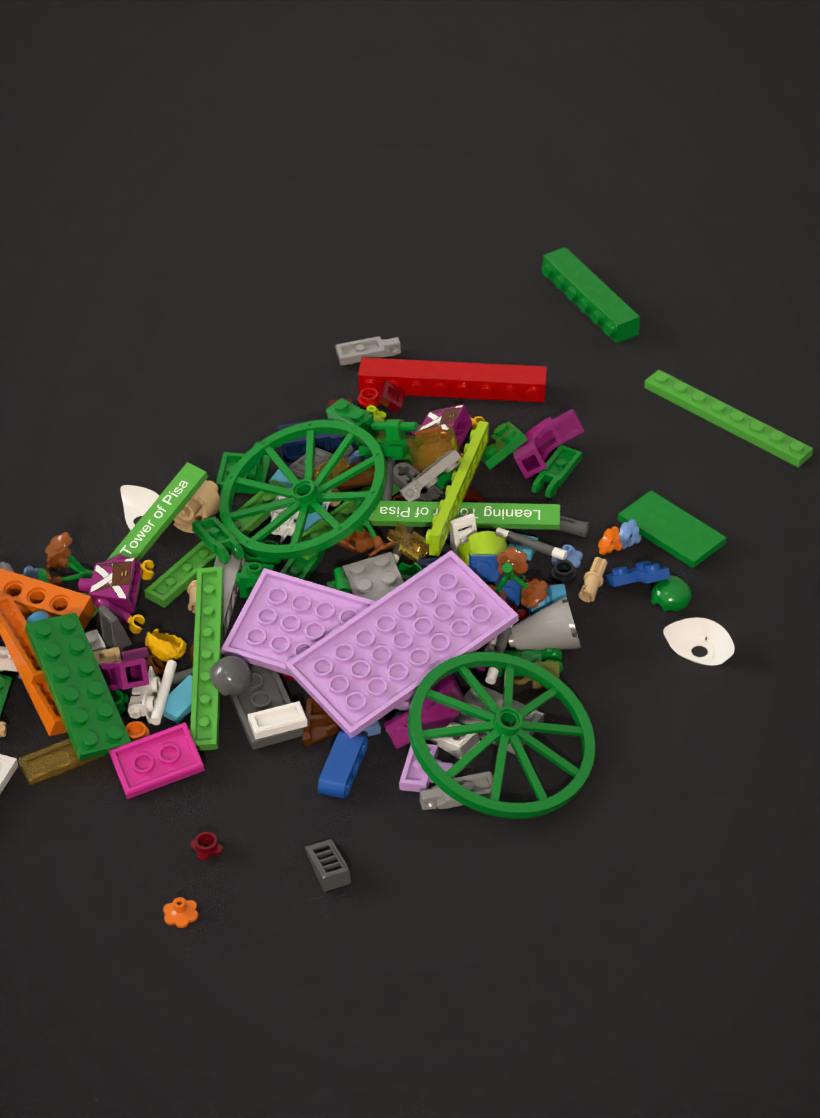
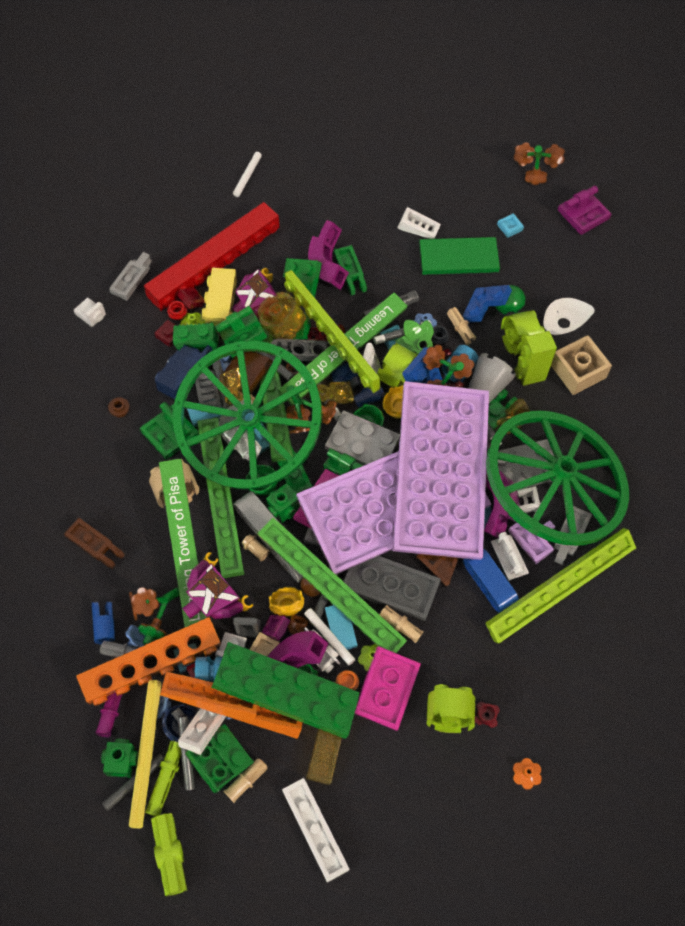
camera: 50 degrees left, 20 degrees up
(23, 554) = (103, 625): none -> blue hinge
(88, 500) = (92, 542): none -> reddish brown hinge
(136, 502) = (133, 510): white piece -> none
(179, 808) = (451, 709): none -> lime brick
(218, 539) = (228, 496): green hinge -> none
(229, 733) = (401, 624): none -> tan pin
(230, 675) = (364, 587): dark grey hair -> none
(231, 431) = (118, 412): none -> reddish brown plate
(277, 720) = (423, 589): white tile -> none
(301, 353) = (90, 311): none -> white bracket
(333, 878) = (566, 646): dark grey slope -> none
(385, 764) = (509, 556): none -> white hinge
(397, 816) = (560, 585): none -> lime plate
(416, 406) = (220, 295): none -> light yellow brick
(429, 475) = (305, 334): light grey hinge -> none
(541, 553) = (415, 334): none -> bright green plate
(571, 344) = (246, 175): none -> white bar
(591, 295) = (218, 130): green brick -> none
(608, 636) = (535, 358): none -> lime brick
(610, 541) = (438, 292): orange plant -> none
(629, 533) = (439, 280): medium blue plant -> none
(635, 618) = (517, 328): none -> lime brick
(654, 681) = (580, 365): none -> tan brick
(671, 467) = (407, 224): none -> white slope
(729, 418) = (392, 156): bright green plate -> none
(761, 543) = (510, 225): none -> medium azure tile

